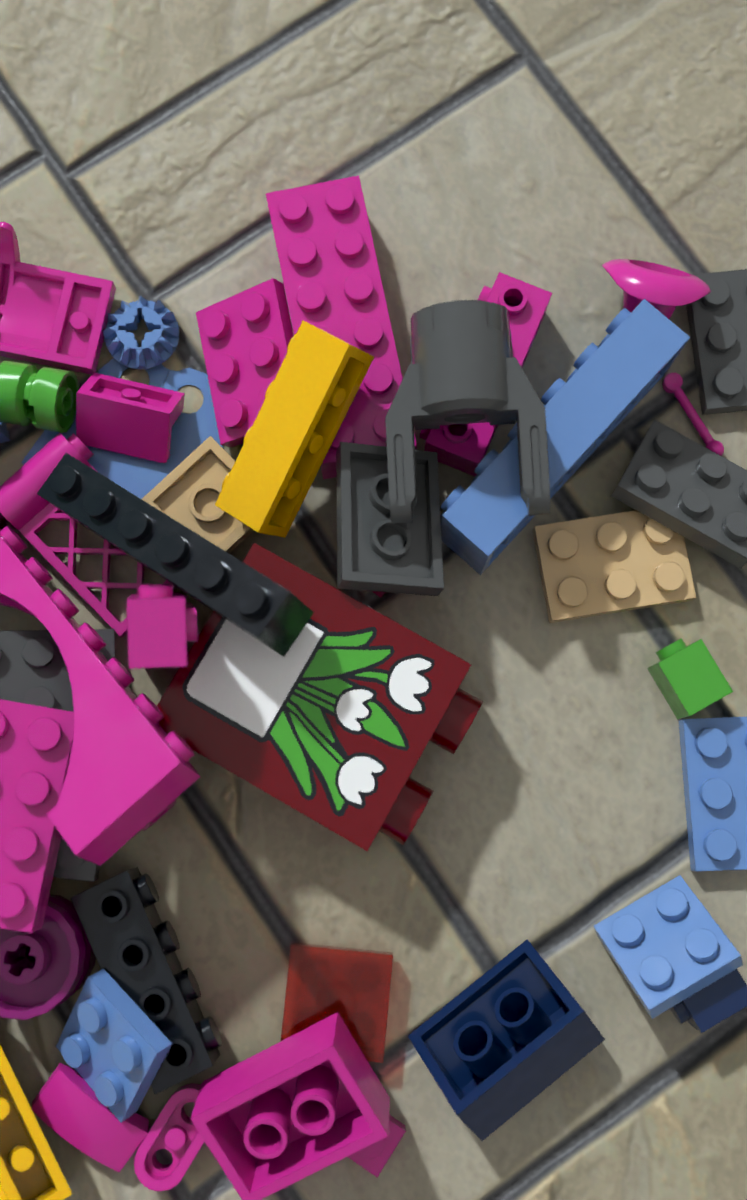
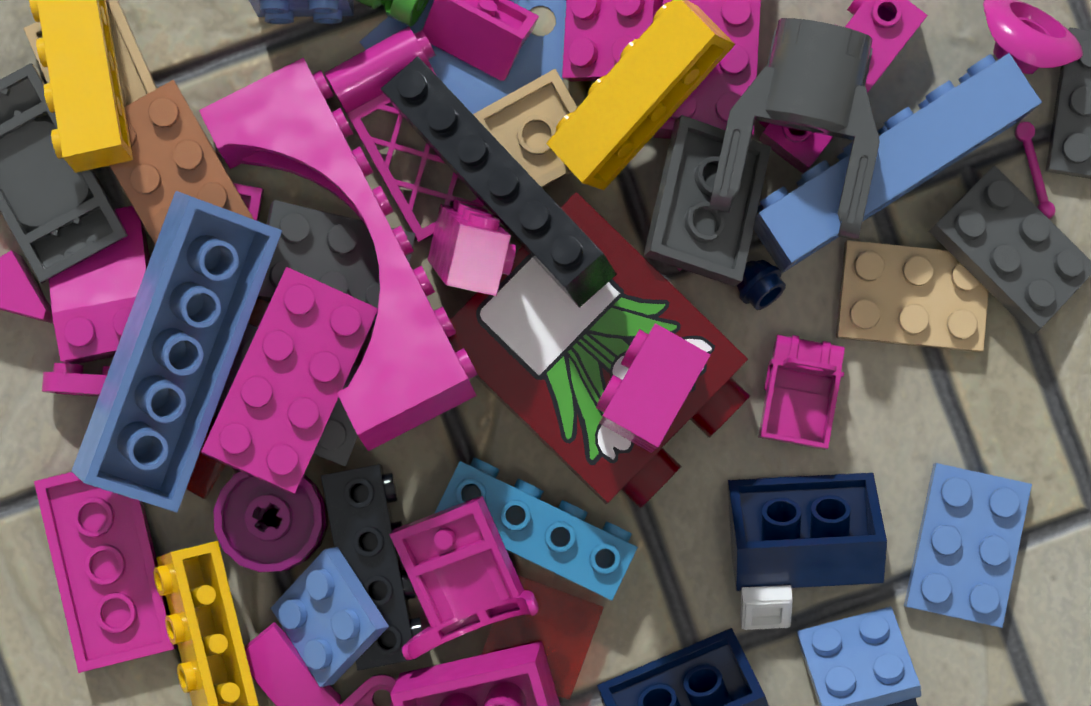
camera: 10 degrees right, 5 degrees up
(234, 965) = (459, 574): none -> dark pink piece
(304, 893) = (544, 533): none -> dark azure brick
(378, 718) = (654, 387): none -> dark pink brick
(463, 590) = (761, 284): none -> dark blue plate
(532, 684) = (801, 392): none -> dark pink piece
(556, 910) = (766, 607): none -> white tile
(576, 823) = (807, 531): none -> dark blue slope
(688, 677) = (952, 424): bright green brick -> none

